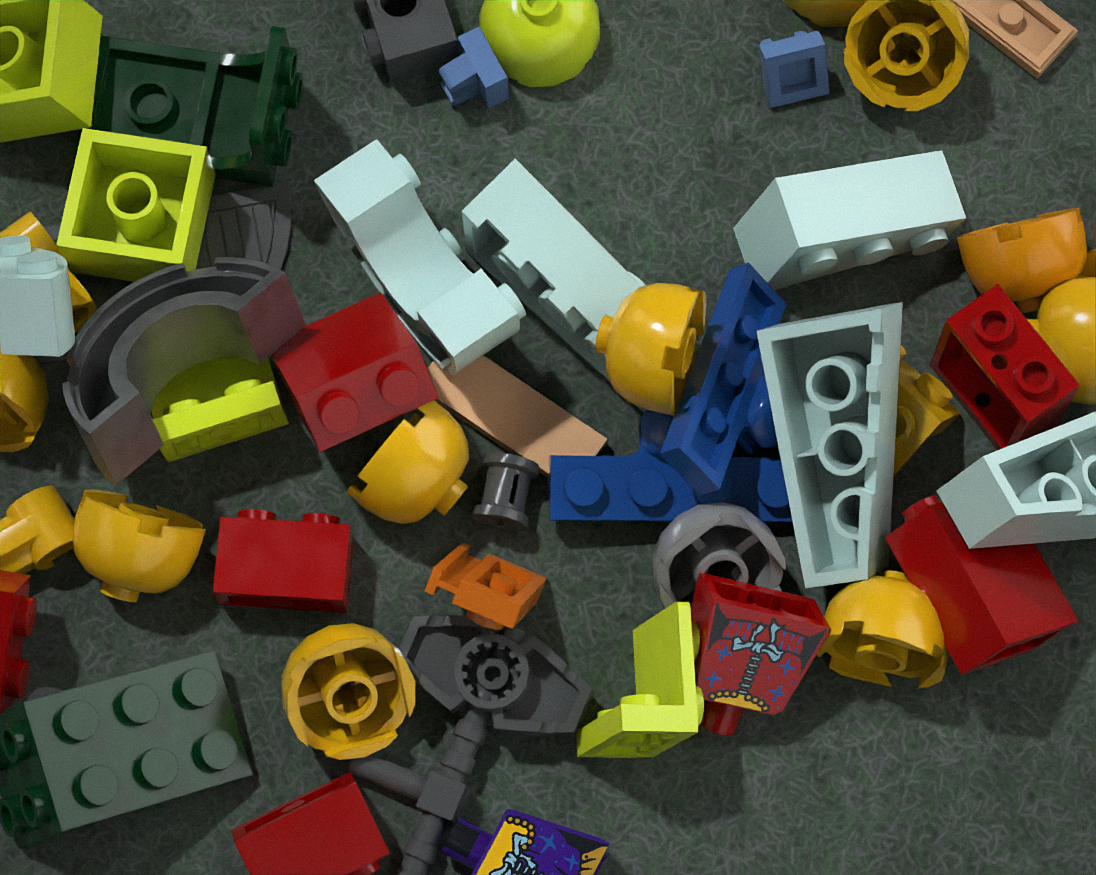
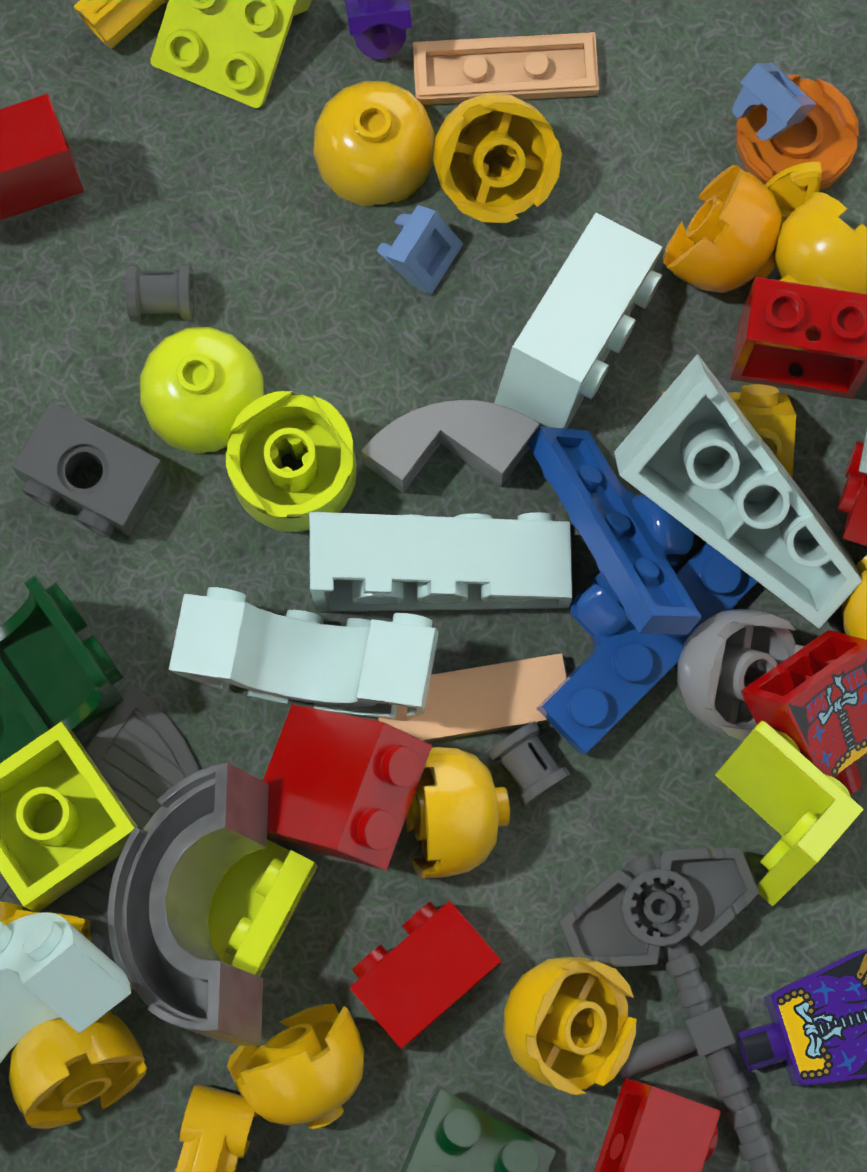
camera: 45 degrees left, 5 degrees up
(474, 72) = (191, 469): medium blue tile -> none
(489, 588) = (595, 846): orange plate -> none
(555, 92) = (308, 431): none -> neon yellow brick
(653, 344) = (547, 557): yellow cylinder -> none
(703, 228) = (476, 431): none -> light grey brick

